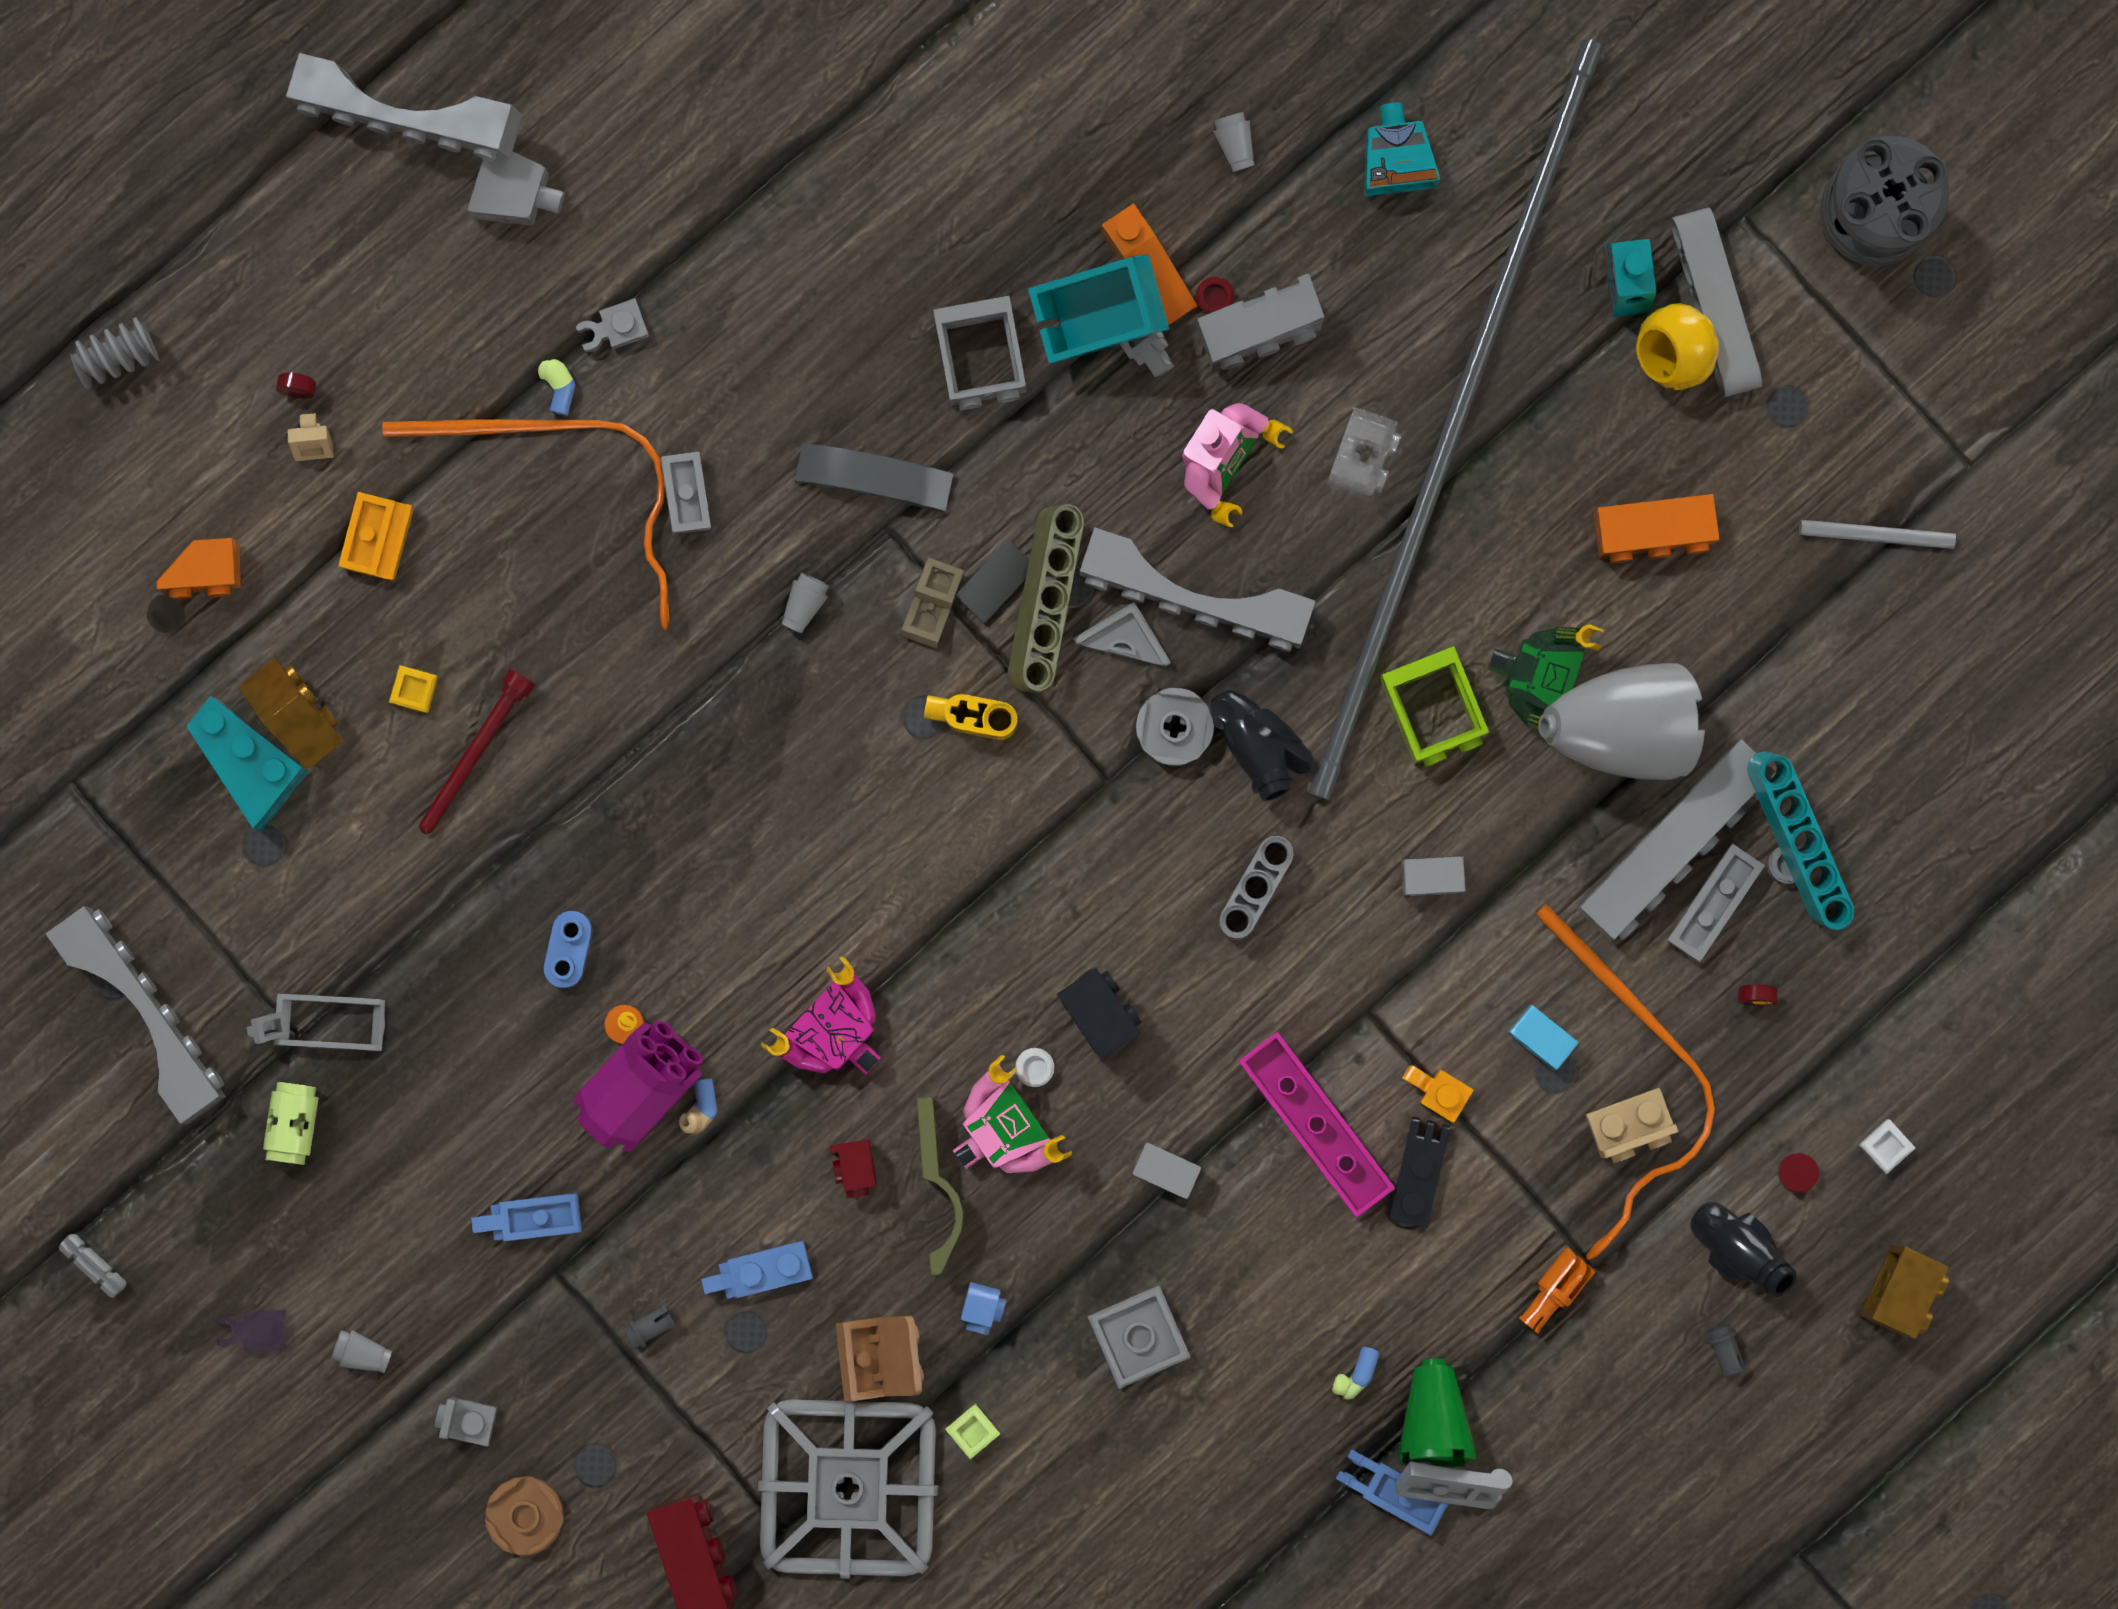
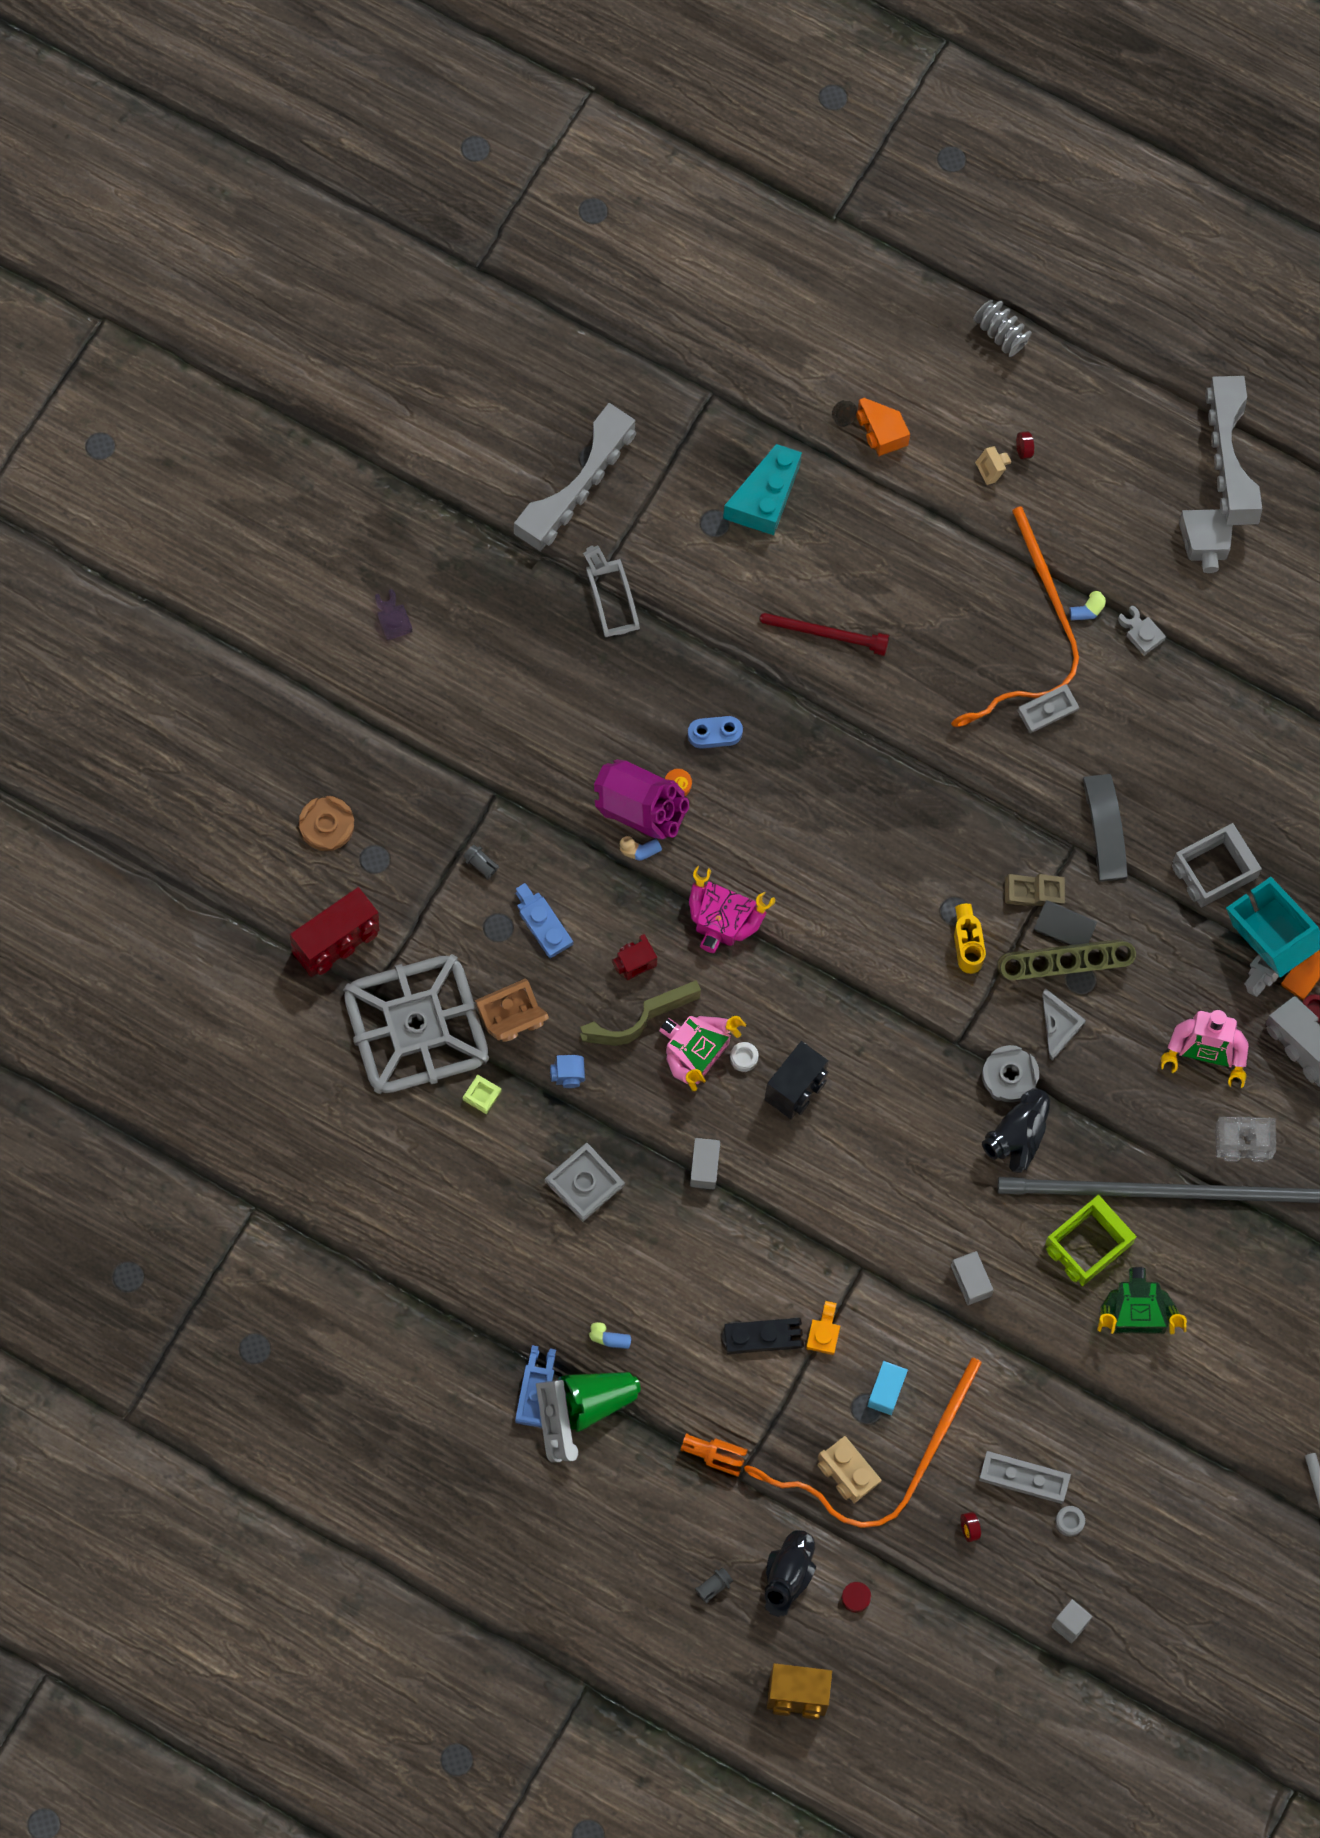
camera: 65 degrees right, 15 degrees down
(92, 1265) = (400, 503): light grey axle -> none
(290, 713) = (808, 503): pearl gold brick -> none
(296, 1104) = (523, 591): yellowish green piece -> none
(359, 1352) = (400, 684): light grey cone -> none
(376, 536) = (944, 525): light orange plate -> none
(413, 689) = (852, 581): yellow tile -> none
(466, 1421) = (377, 765): light grey bracket -> none
(531, 1218) = (527, 764): medium blue hinge -> none
(804, 601) = (1005, 807): light grey cone -> none
(1262, 869) = (933, 1156): light grey beam -> none
(1273, 615) = (1111, 1112): light grey arch -> none
(1316, 1124) = (772, 1253): dark pink piece -> none
(1630, 722) = (1126, 1360): light grey cylinder -> none
(1656, 528) = (1271, 1352): orange brick -> none
(1672, 844) = (1058, 1435): light grey brick -> none
(1813, 853) = (1085, 1530): teal beam -> none
(1886, 1146) = (896, 1654): white tile -> none
(1924, 912) = (1072, 1621): none -> light grey piece

